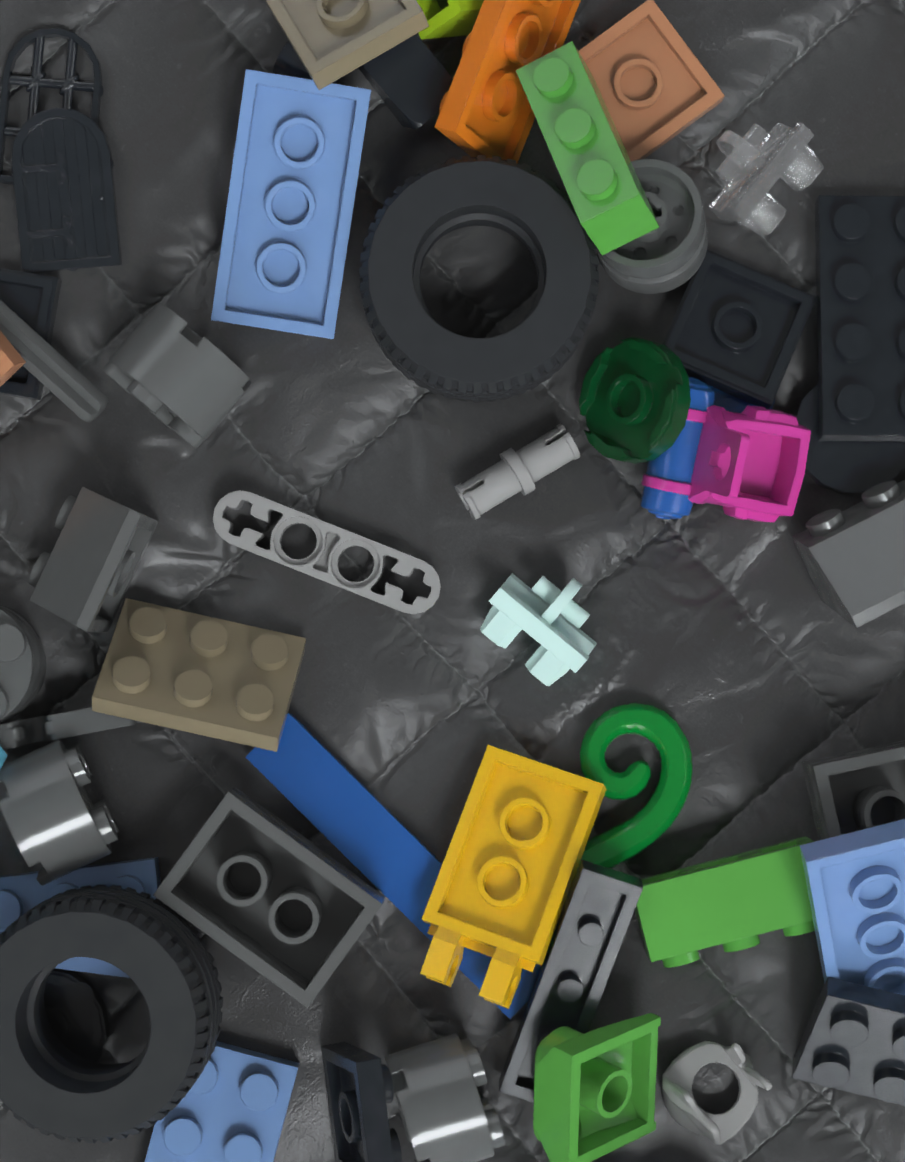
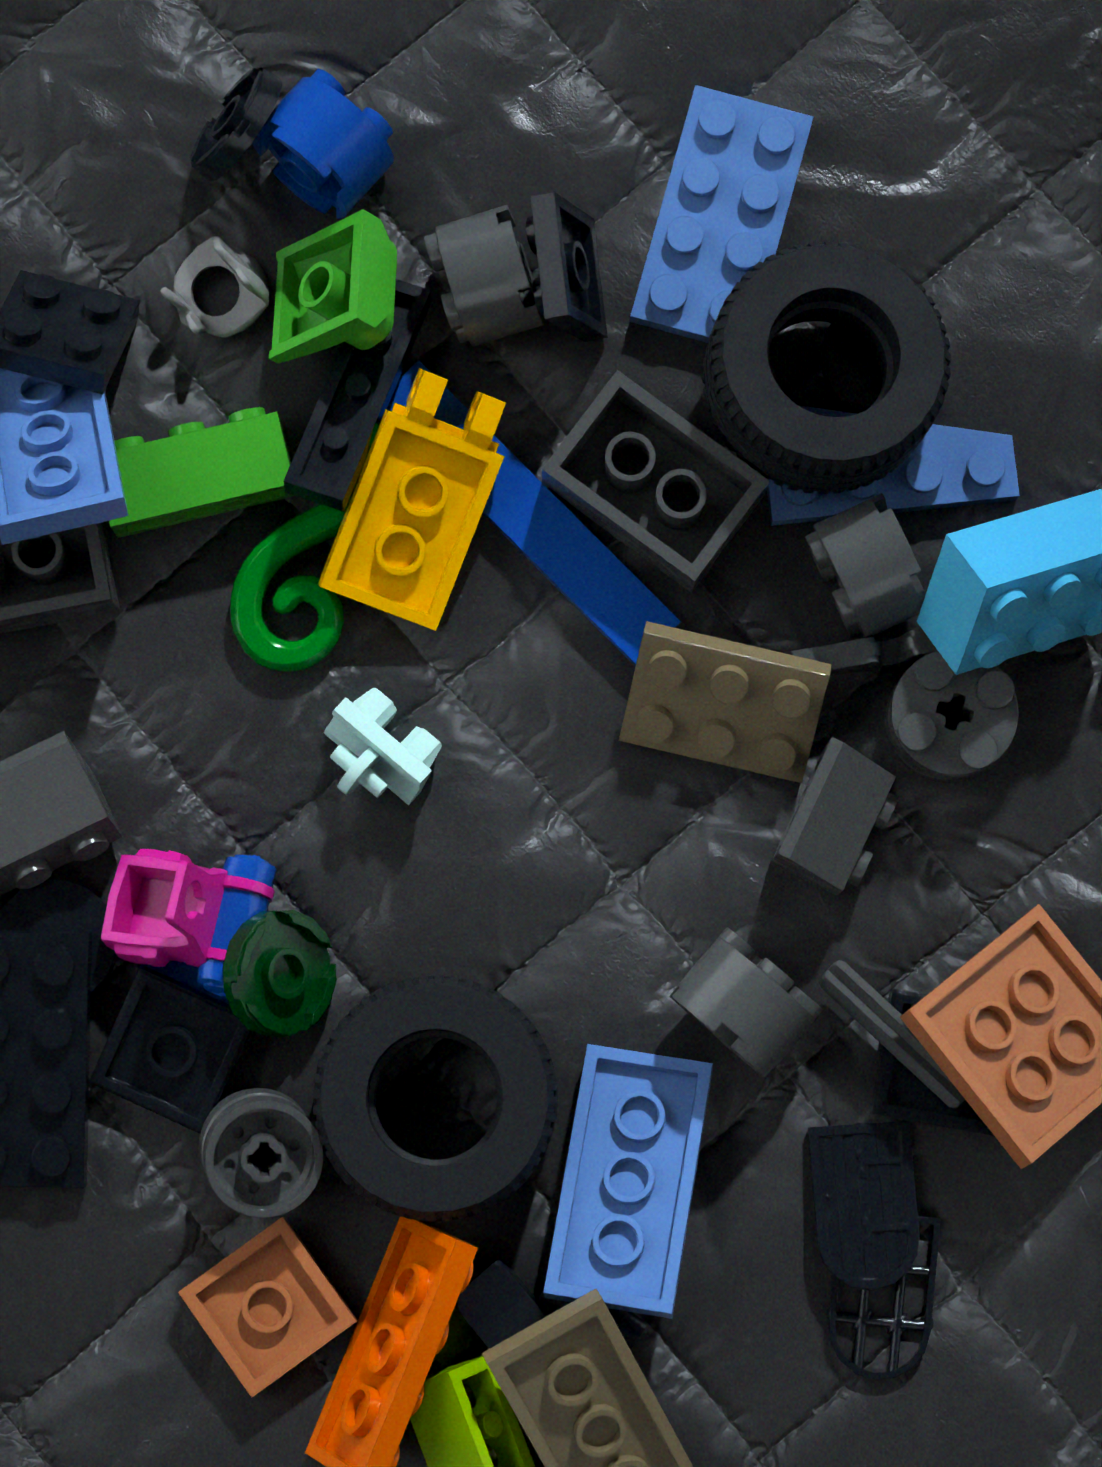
camera: 175 degrees right, 5 degrees down
(329, 547) = (600, 817): light grey beam -> none
(517, 471) = (400, 906): light grey pin -> none
(587, 149) = (322, 1224): bright green brick -> none
(753, 168) = (147, 1214): clear hips -> none

